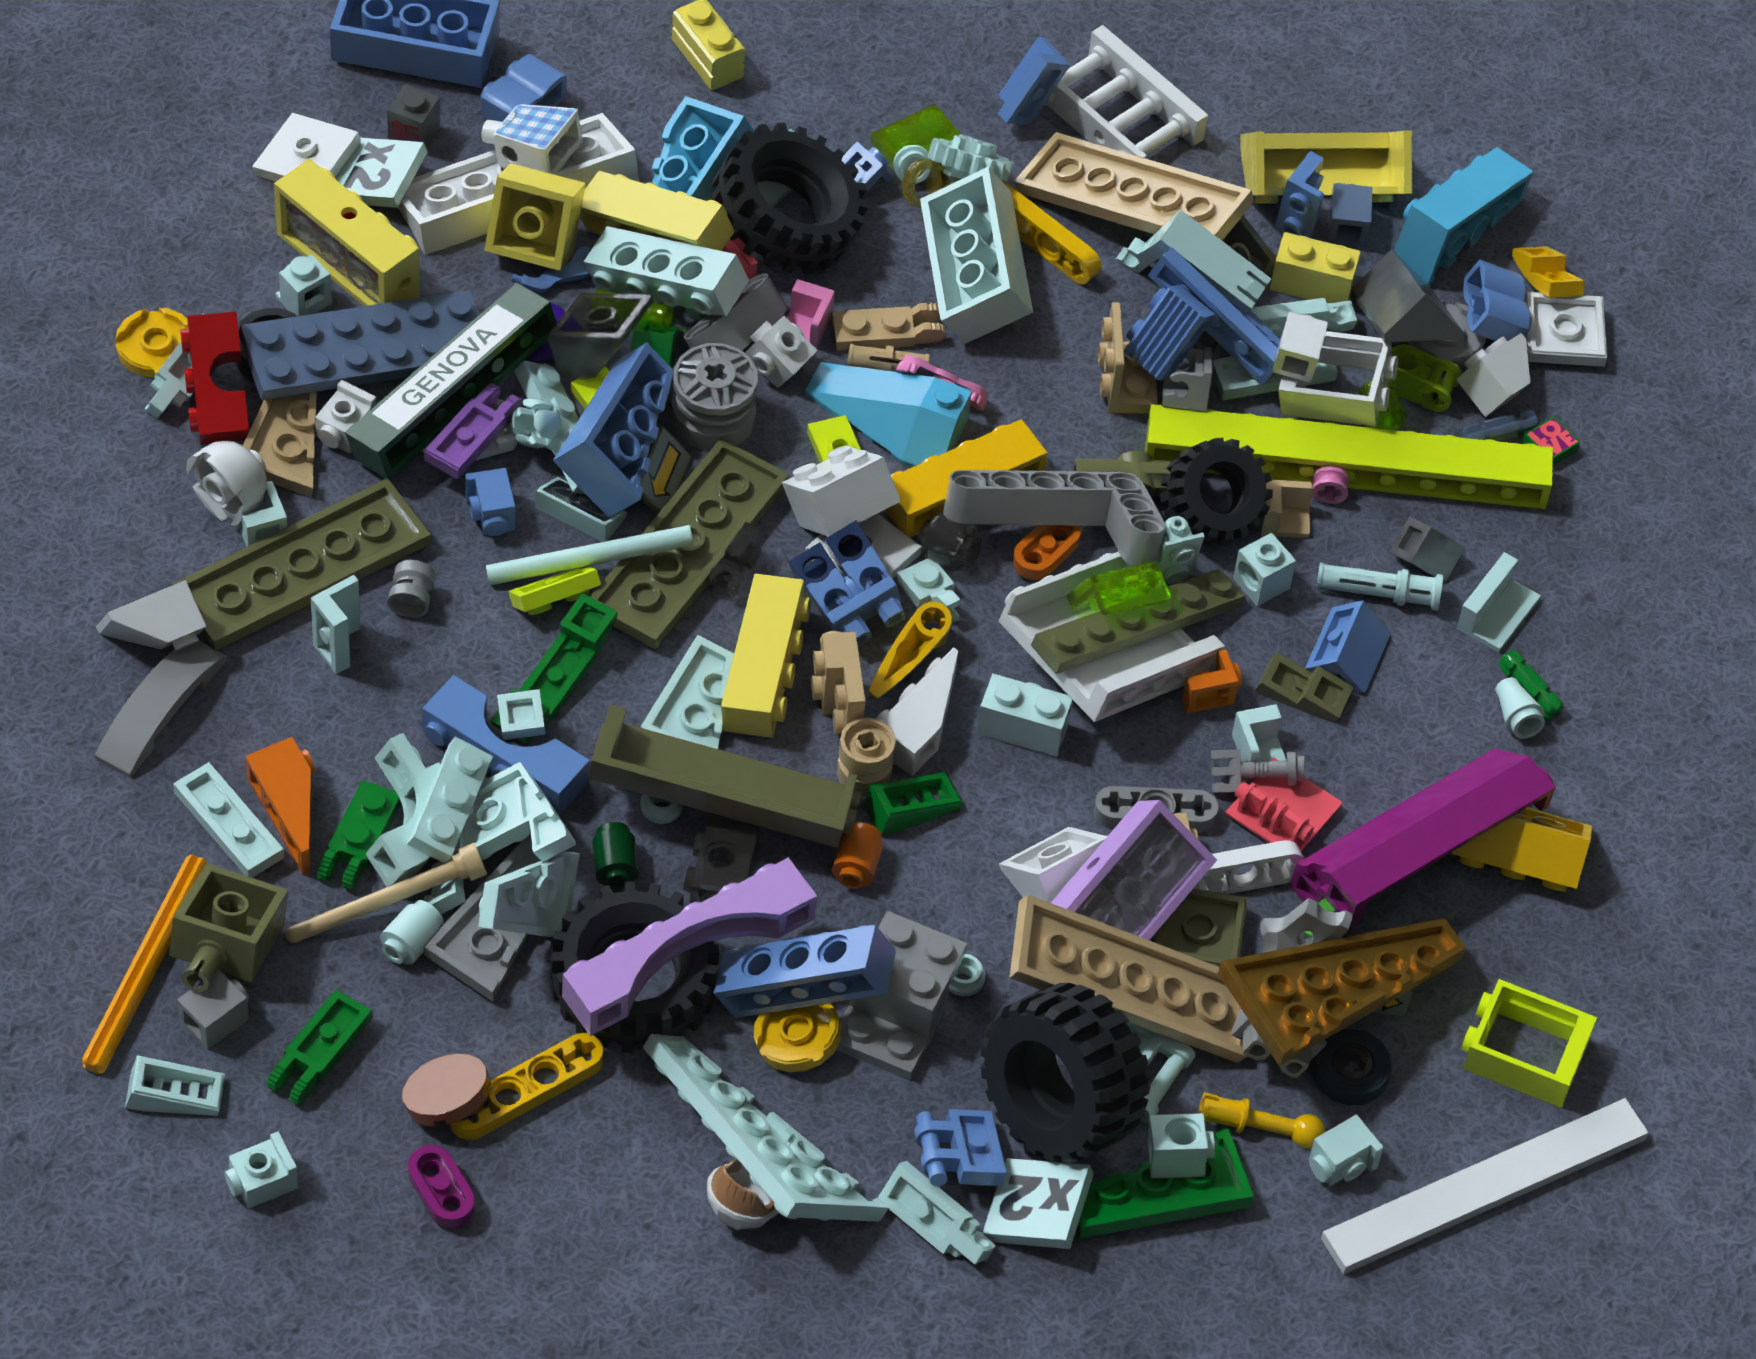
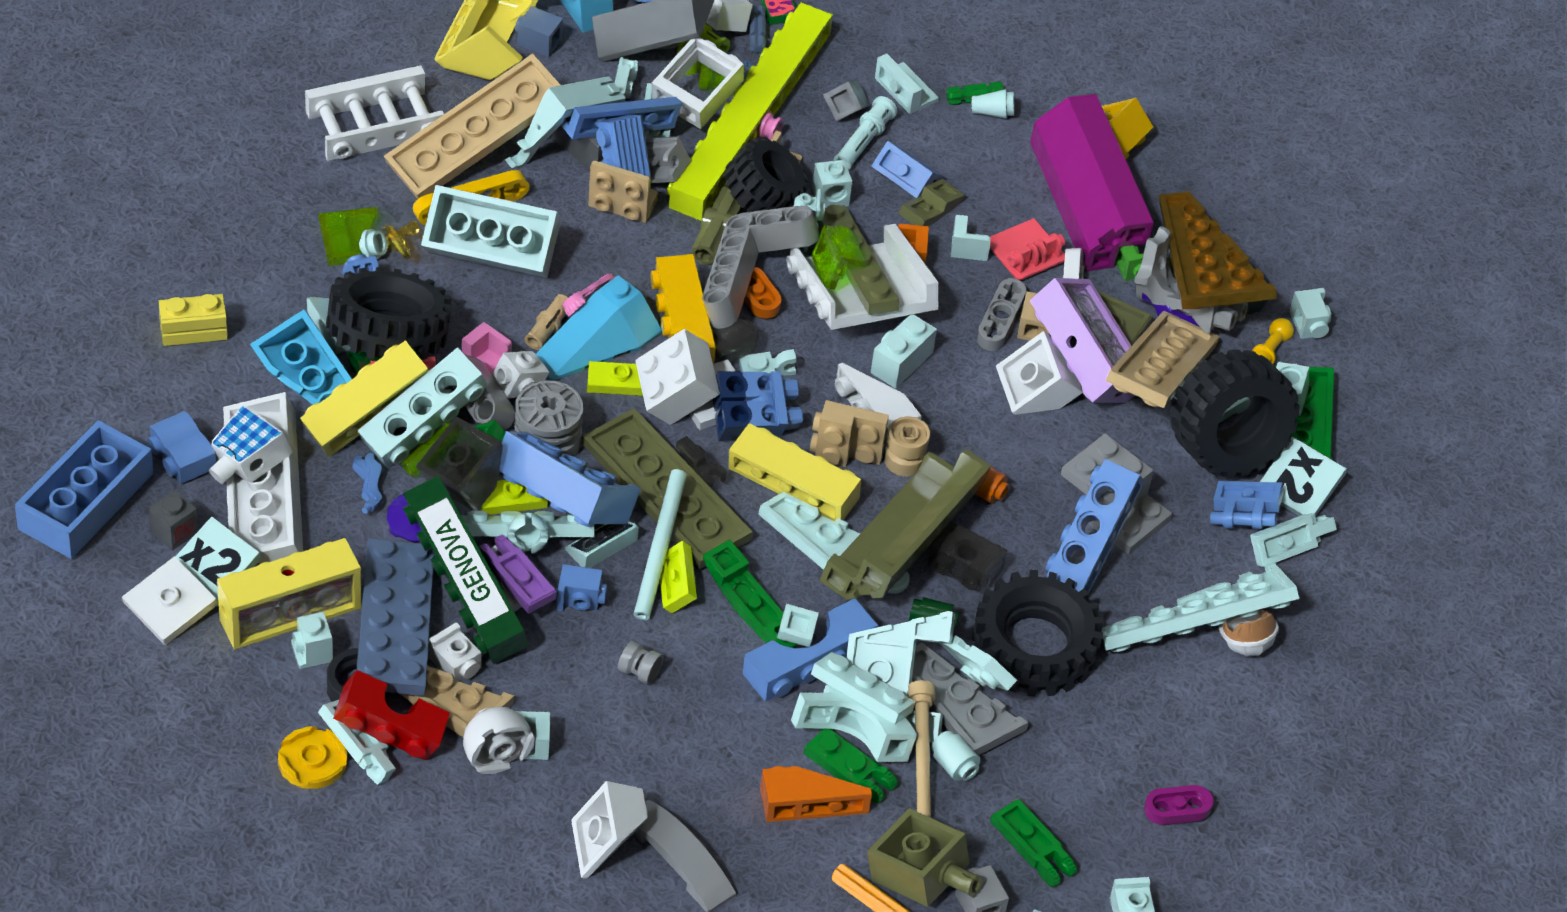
camera: 70 degrees left, 5 degrees down
(228, 820) = (809, 839): light aqua plate -> none
(303, 560) = (582, 716): olive plate -> none
(333, 619) = (669, 712): light aqua panel -> none
(446, 1089) = (1103, 773): tile -> none
(530, 1091) = (1108, 731): yellow beam -> none
(534, 216) = (327, 469): light yellow brick -> none
(762, 905) = (1074, 634): lavender arch -> none
(798, 1037) = (1125, 566): yellow tile -> none
(887, 327) = (516, 311): tan hinge -> none
(890, 816) = (945, 442): green slope -> none
(912, 646) = (815, 381): yellow piece -> none
(967, 156) = (399, 204): light aqua gear -> none
(1032, 83) = (337, 147): medium blue panel -> none
(1292, 768) = (1005, 229): light grey hinge -> none
(1300, 347) = (682, 80): white brick -> none
(1302, 198) = (525, 39): medium blue bracket -> none
(1314, 269) = (585, 60): light yellow brick -> none
(1484, 1186) = (1352, 260): white tile -> none
(1540, 1014) = (1263, 171): neon yellow window -> none

